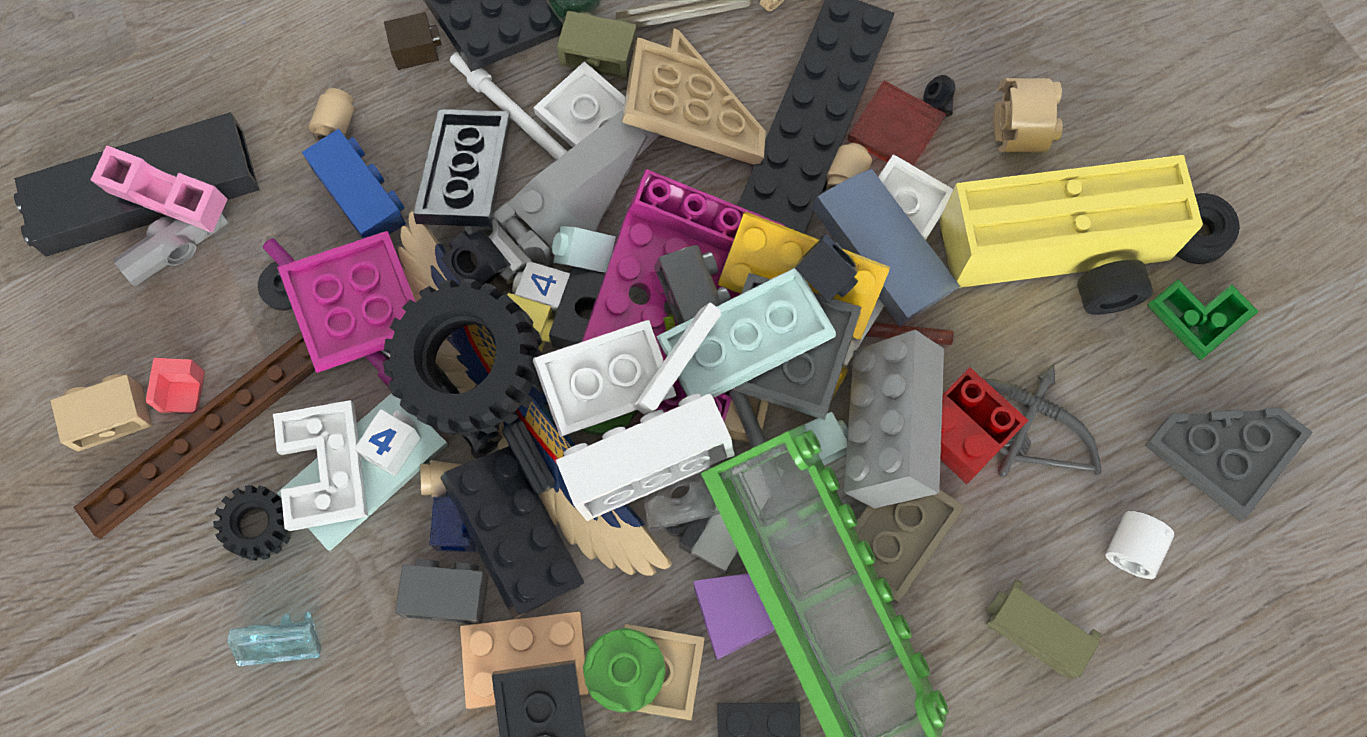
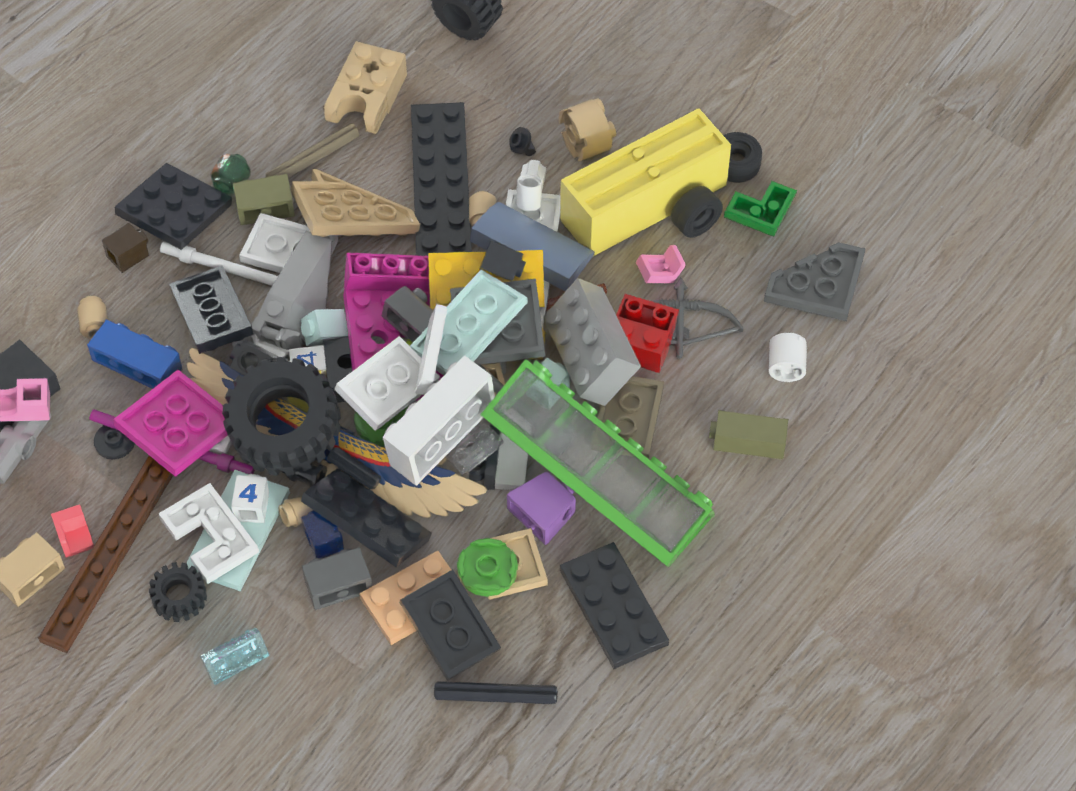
camera: 25 degrees left, 15 degrees down
(896, 125) = (498, 170): clear red tile -> none
(921, 163) = (530, 186): none -> white piece
(1035, 342) = (661, 267): none -> bright pink bracket

